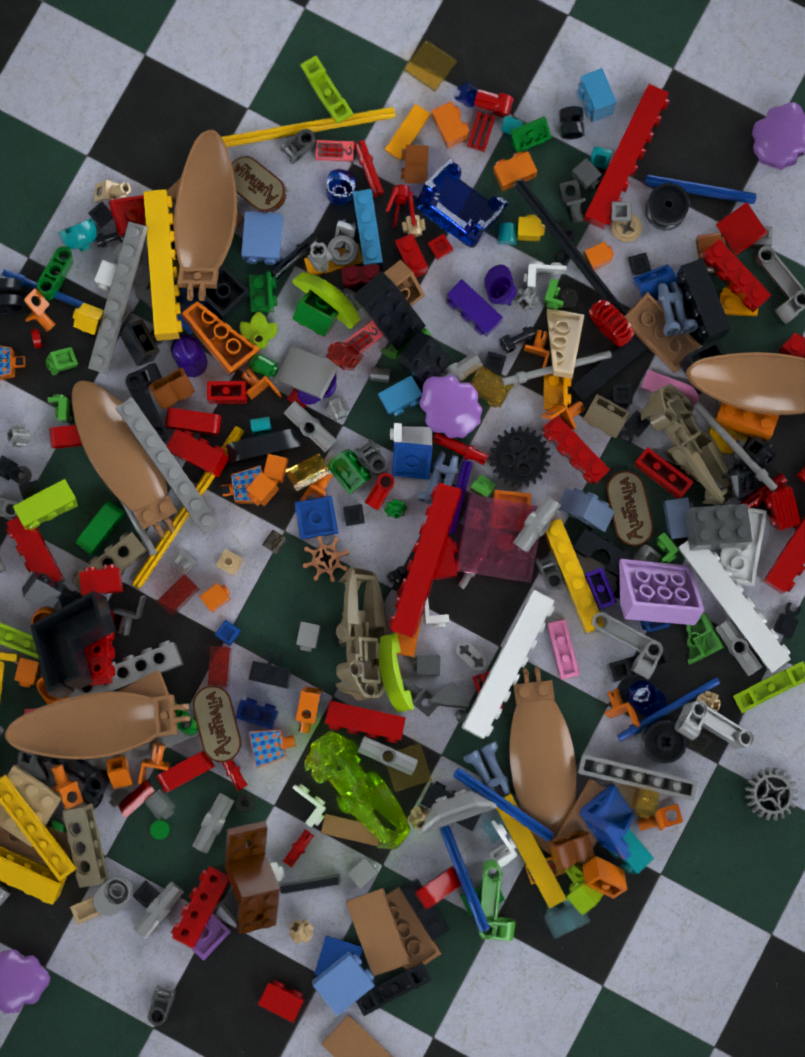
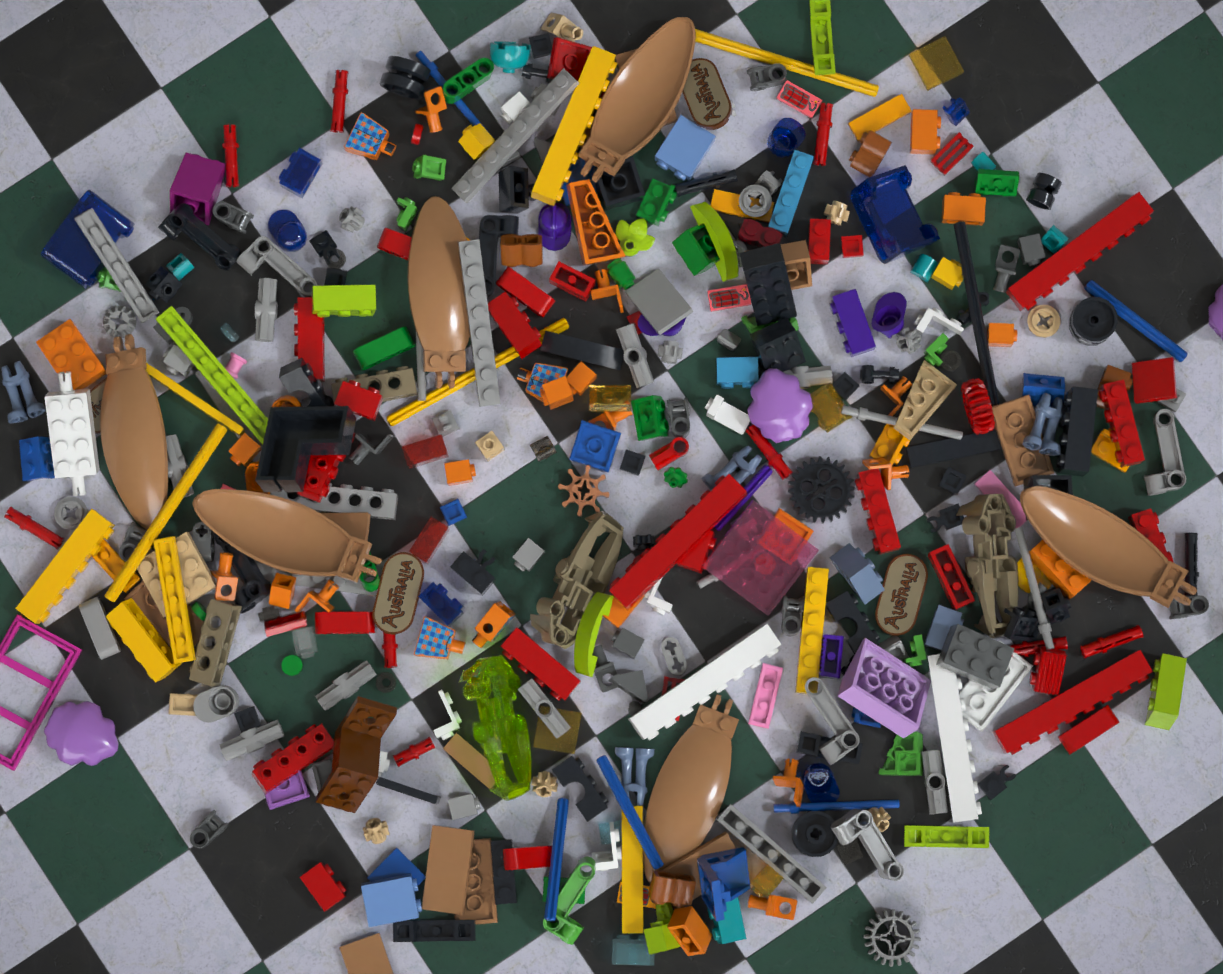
camera: 25 degrees right, 0 degrees up
(261, 426) = (588, 330): teal brick -> none
(319, 257) = (728, 197): light grey piece -> none
(344, 355) = (703, 304): clear red brick -> none
(401, 194) = (840, 176): red plant -> none
(412, 460) = (715, 439): blue tile -> none
(455, 809) = (581, 792): light grey wedge -> none
(482, 486) = (770, 499): bright green bracket -> none
(498, 104) = (981, 135): red piece -> none
(537, 523) = (802, 562): light grey piece -> none
(596, 95) = (1082, 177): dark azure brick -> none
(606, 416) = (925, 493): dark tan brick -> none
(622, 211) = (1045, 303): light grey slope -> none
(639, 264) = (1037, 363): black tile -> none

